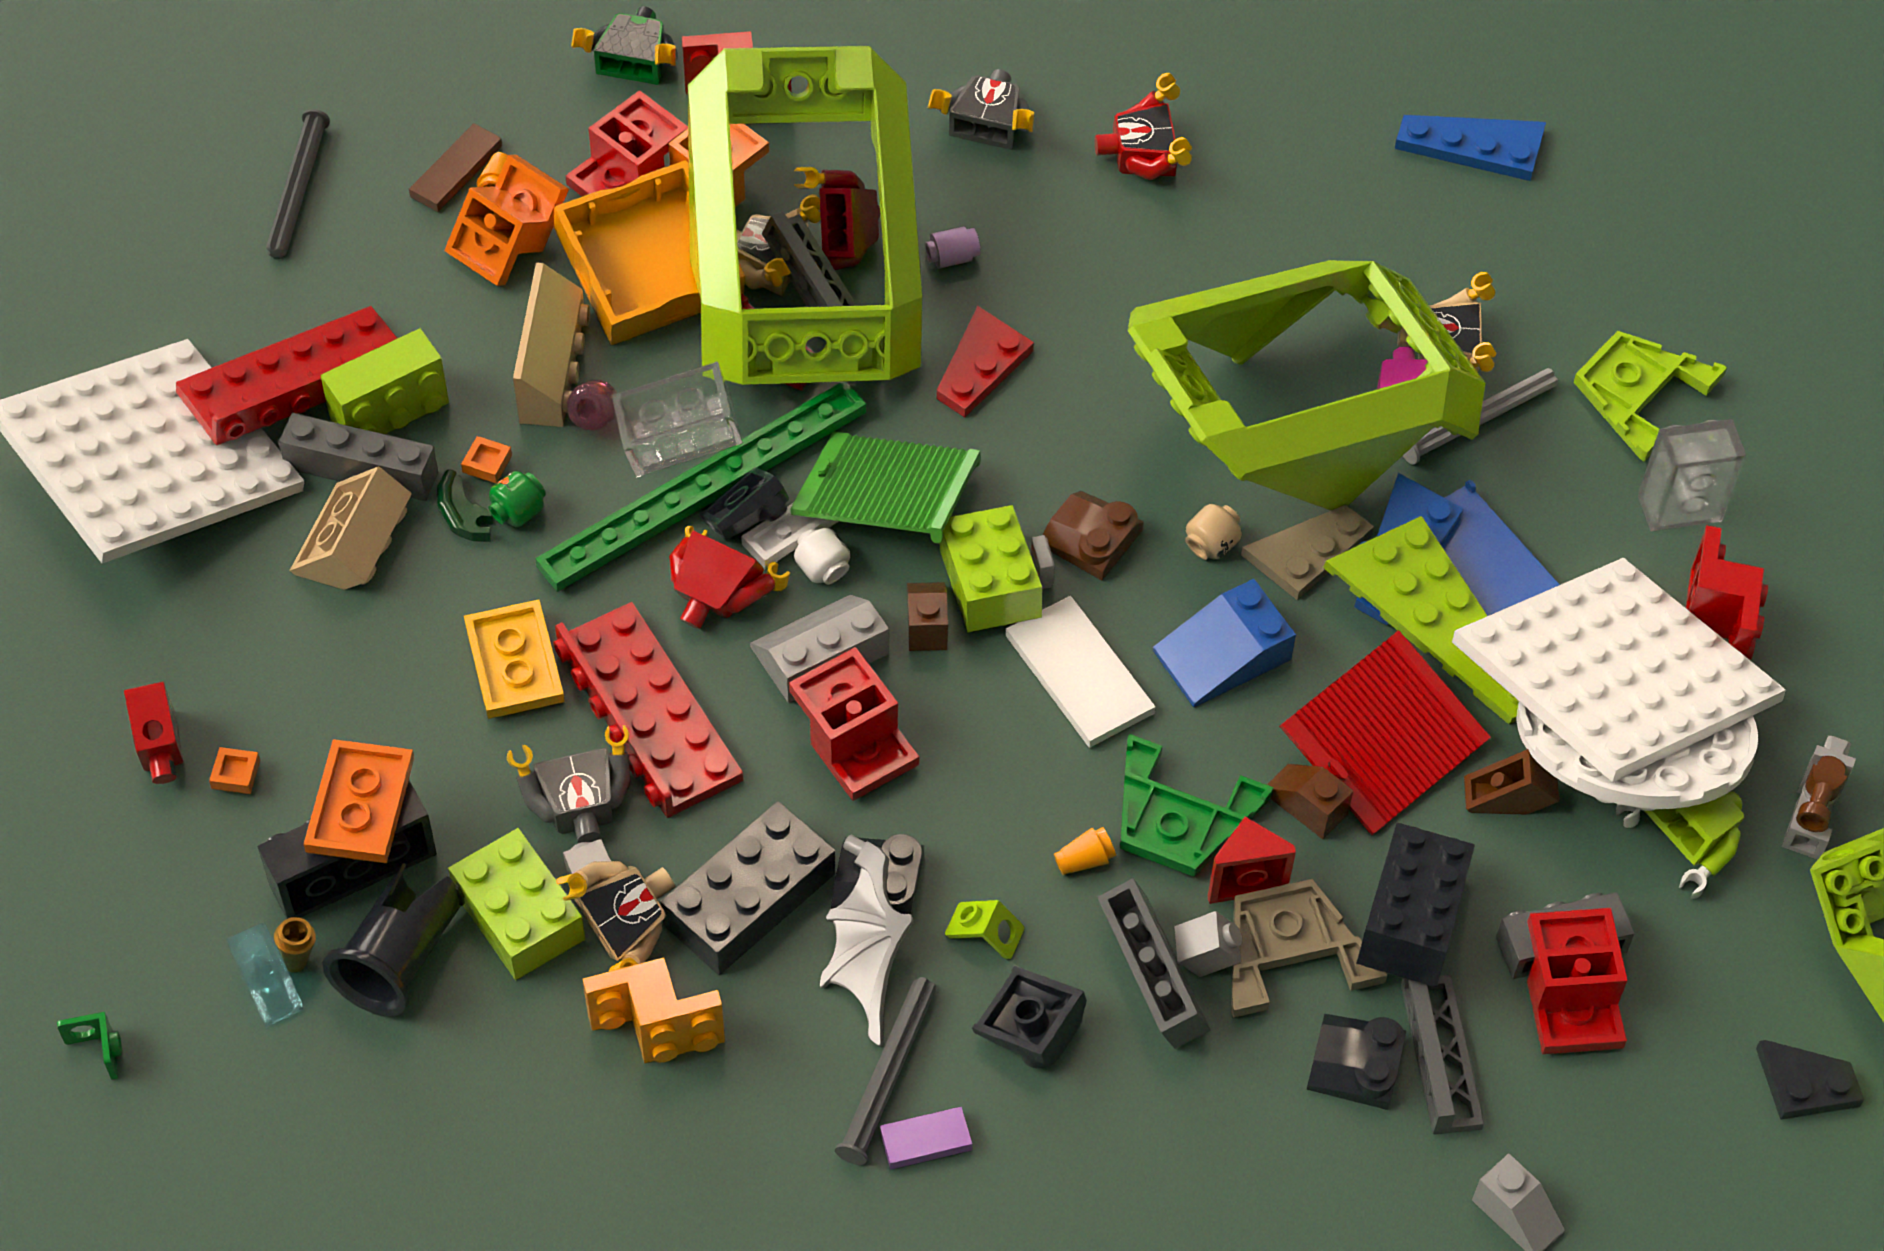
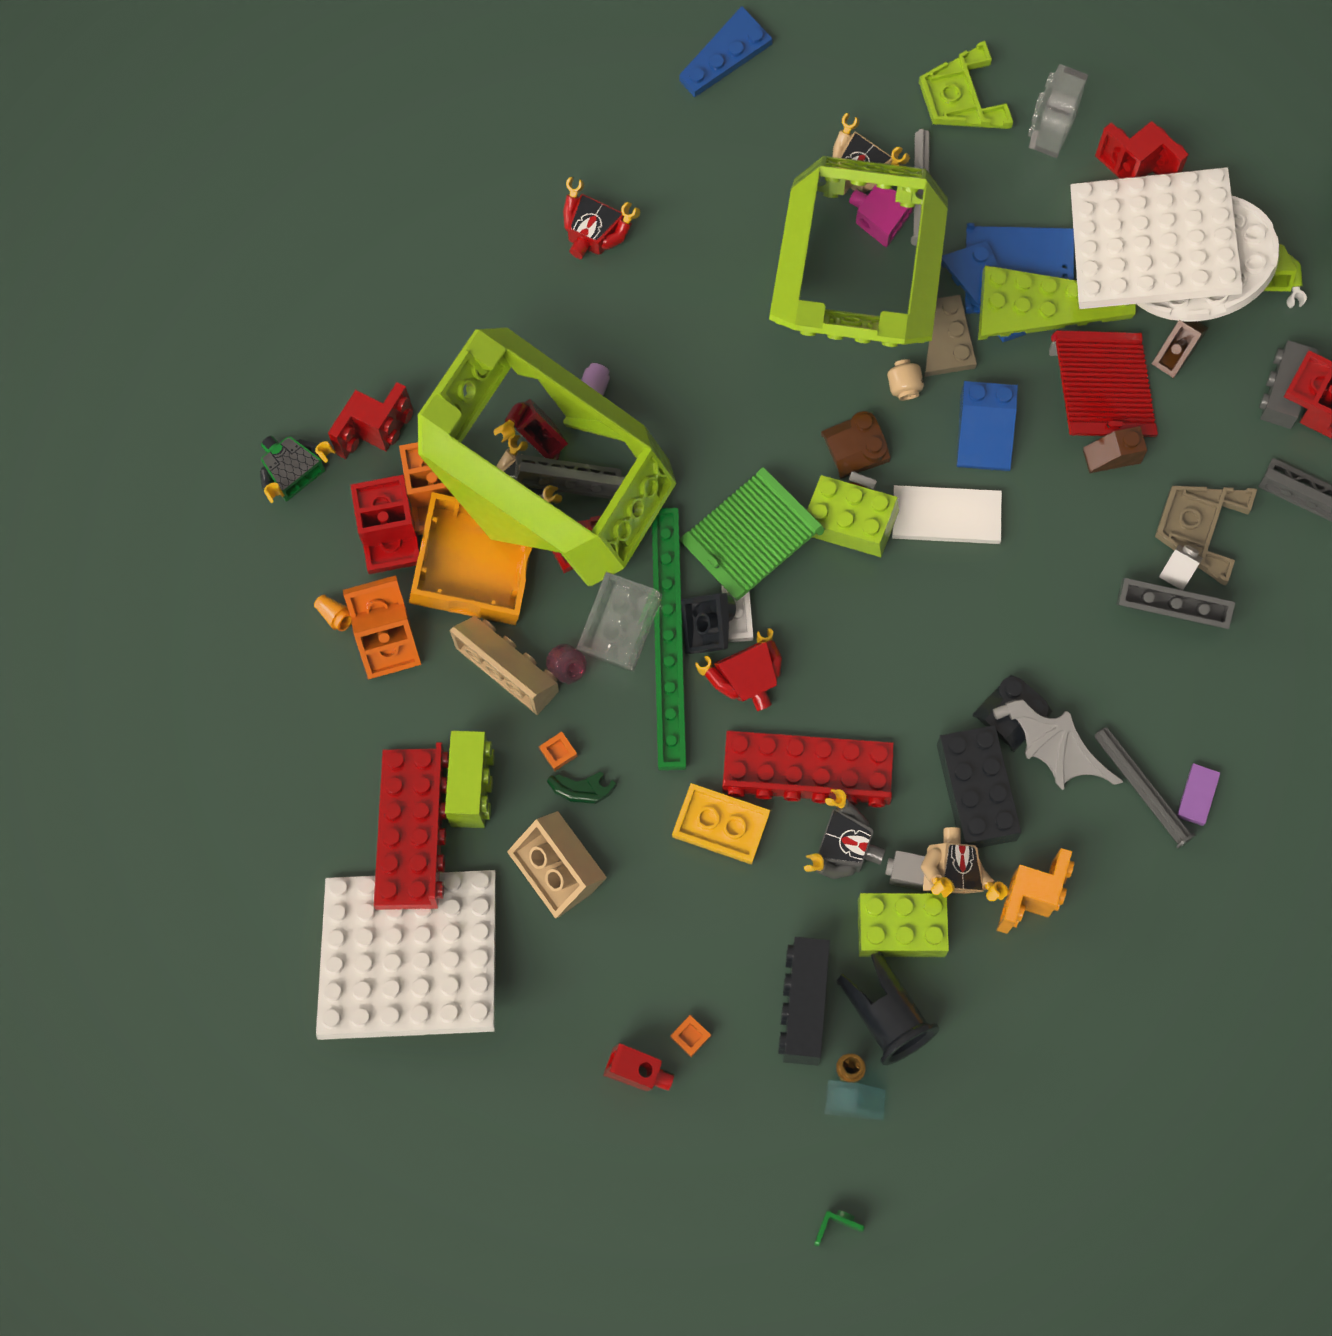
camera: 50 degrees left, 15 degrees up
(285, 219) = (242, 737): dark grey axle -> none
(346, 451) = (503, 826): dark grey brick -> none
(359, 801) = (800, 975): orange plate -> none
(455, 167) = (303, 632): reddish brown tile -> none
(516, 499) = (605, 751): green head -> none
(821, 638) = (831, 642): light grey slope -> none
(822, 555) = (771, 602): white head -> none
(854, 723) = (911, 660): red bracket -> none
(927, 616) = (851, 569): reddish brown slope -> none
(981, 362) = (688, 423): red wing -> none
(982, 920) = (1083, 677): lime bracket -> none
(985, 110) = (504, 294): torso -> none
(1033, 1017) = (1163, 689): black slope -> none
(1085, 852) = (1073, 591): light orange cone -> none
(1176, 825) = (1083, 535): green wing -> none
(1250, 862) = (1144, 510): red slope -> none
(1357, 1059) = (1294, 539): black slope -> none
(1416, 904) = (1232, 444): black brick -> none
(1818, 792) = (1291, 202): hips -> none

